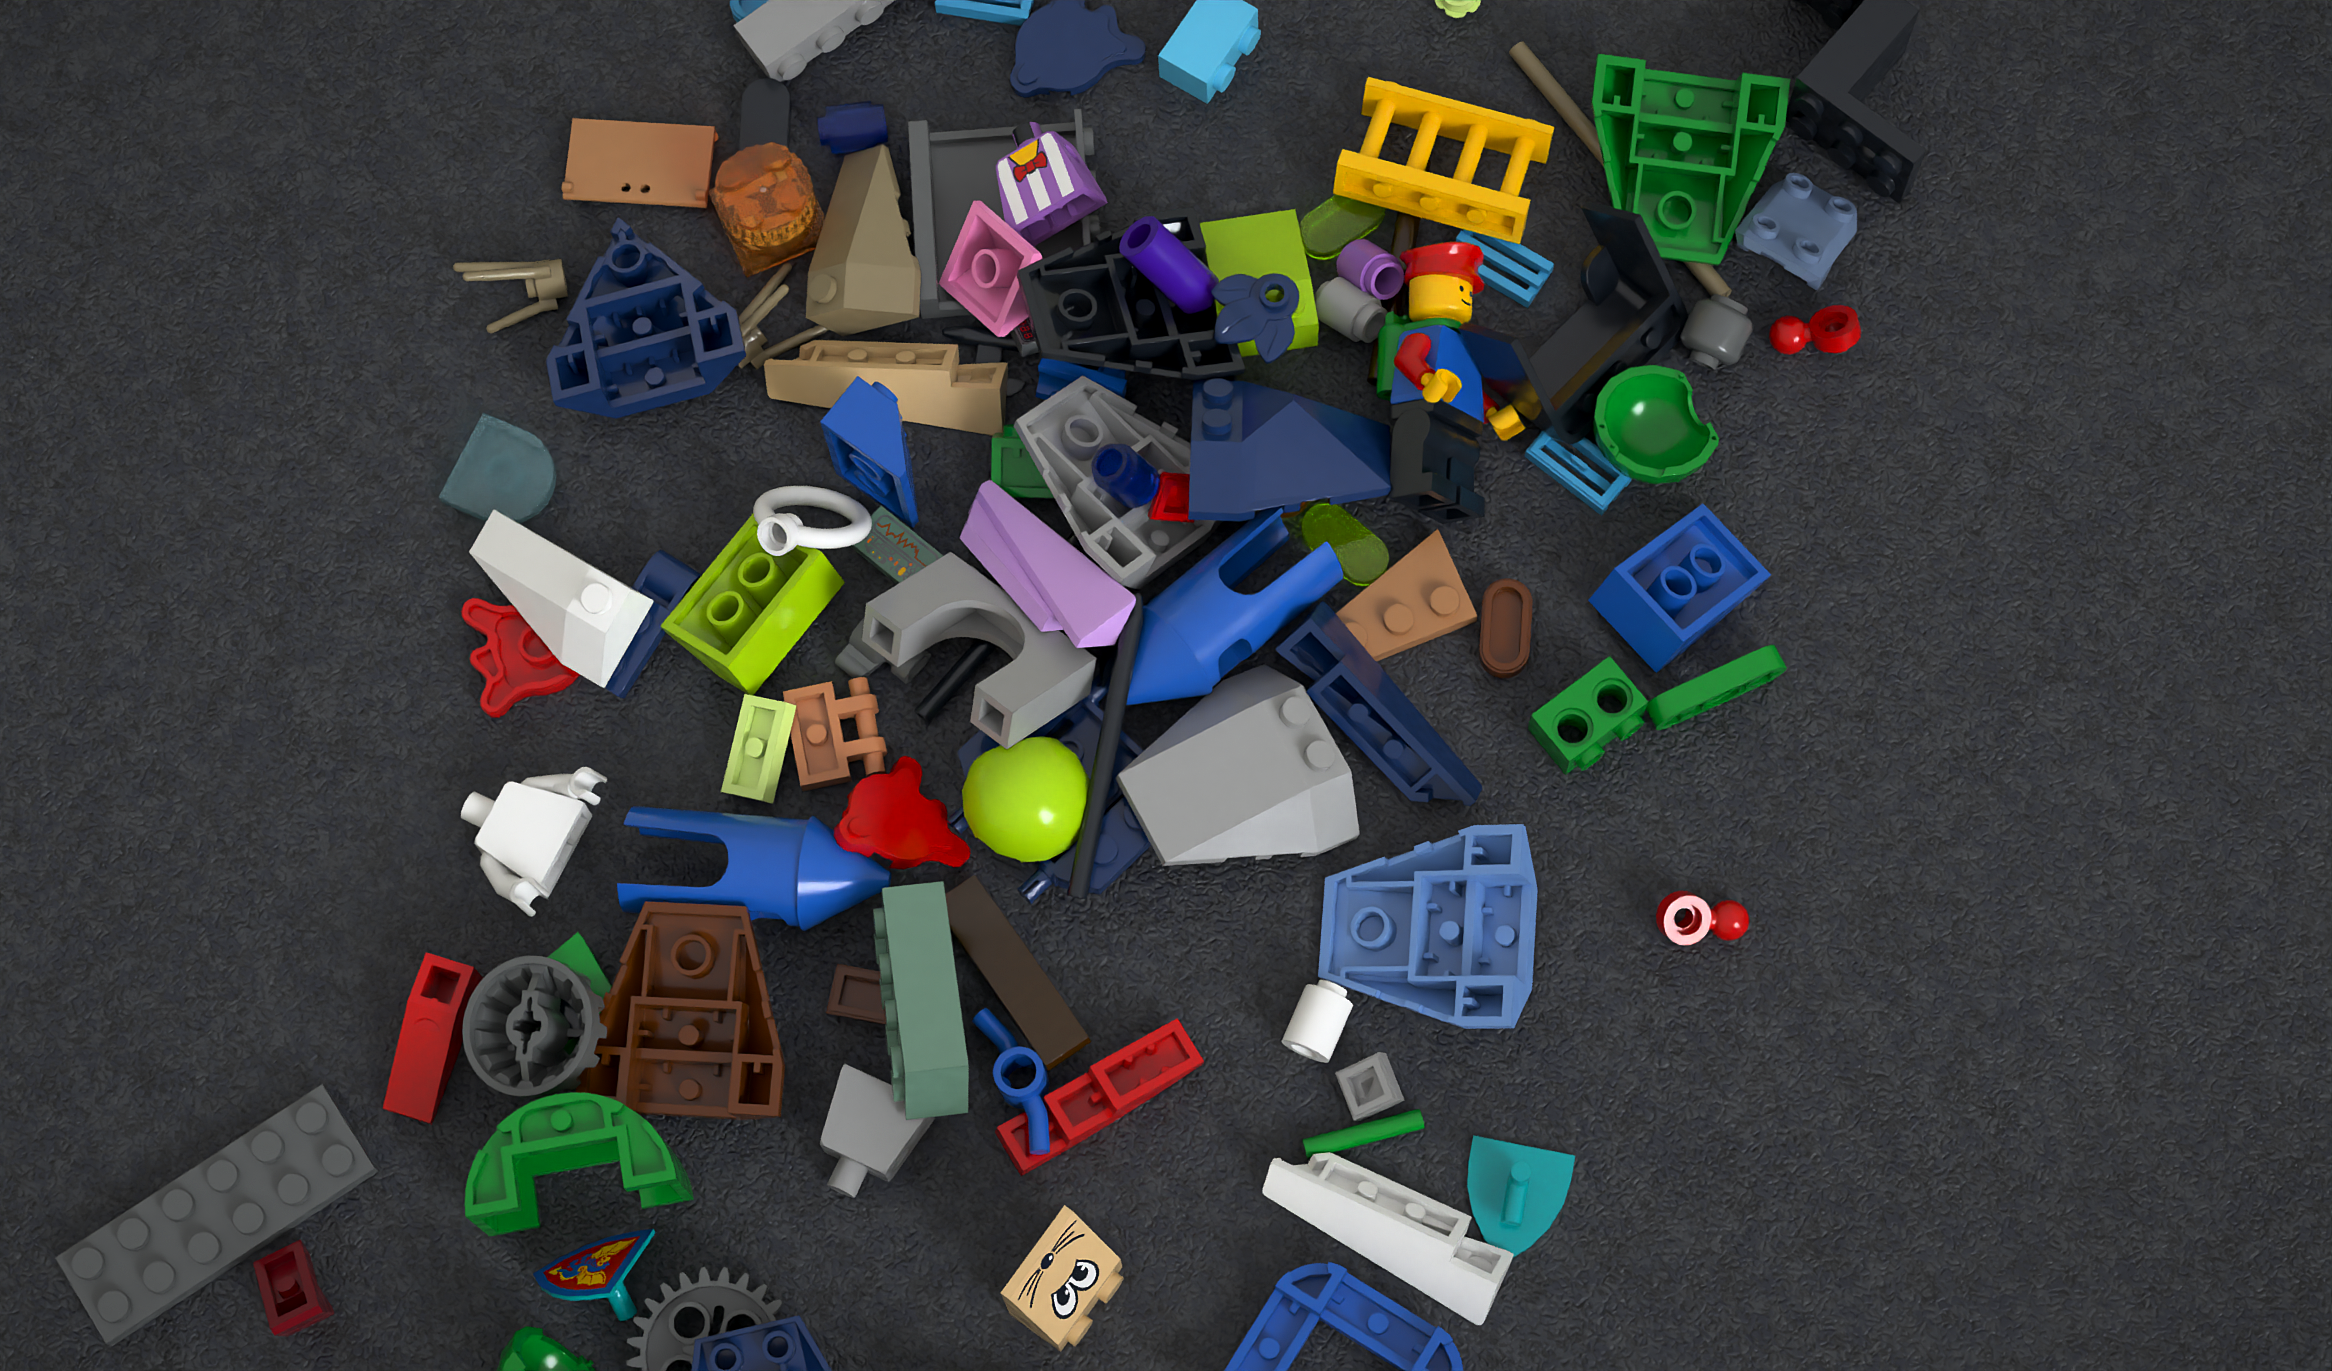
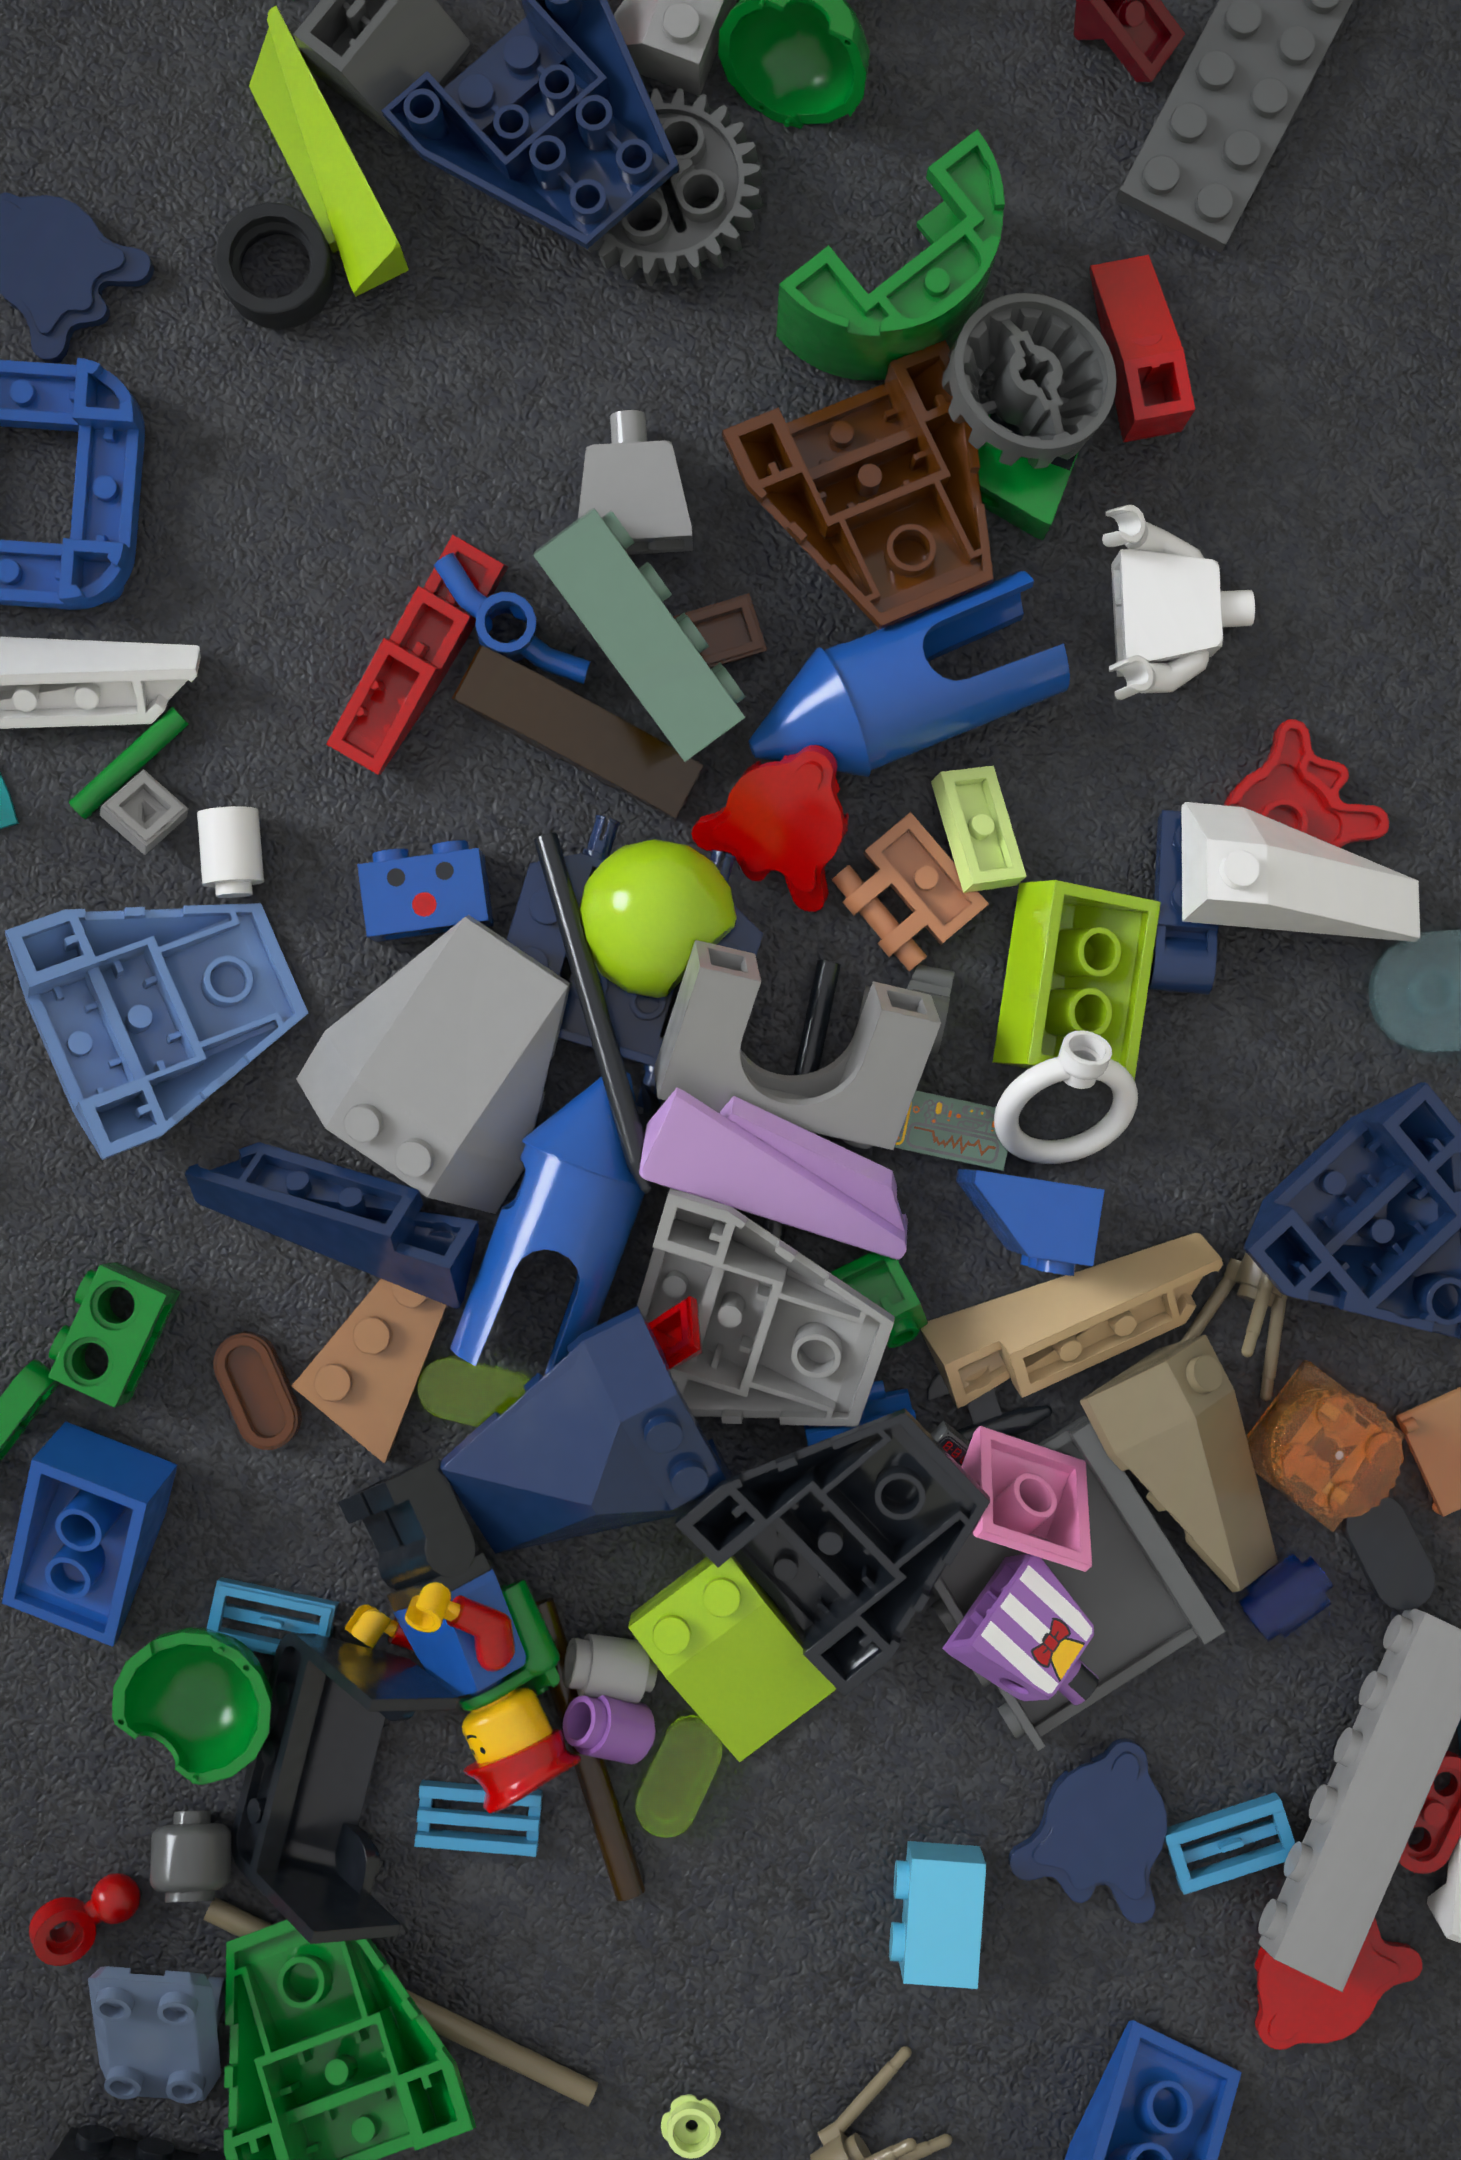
camera: 145 degrees right, 15 degrees up
(597, 1271) = (831, 196): shield -> none
(1063, 1281) = (344, 429): tan slope -> none
(1125, 475) = (735, 1321): clear blue brick -> none
(1169, 265) = (827, 1603): dark purple brick -> none
(1188, 913) = (424, 892): none -> blue brick
(1252, 316) = (698, 1590): dark blue plate -> none
(1431, 195) = (584, 1852): yellow fence -> none

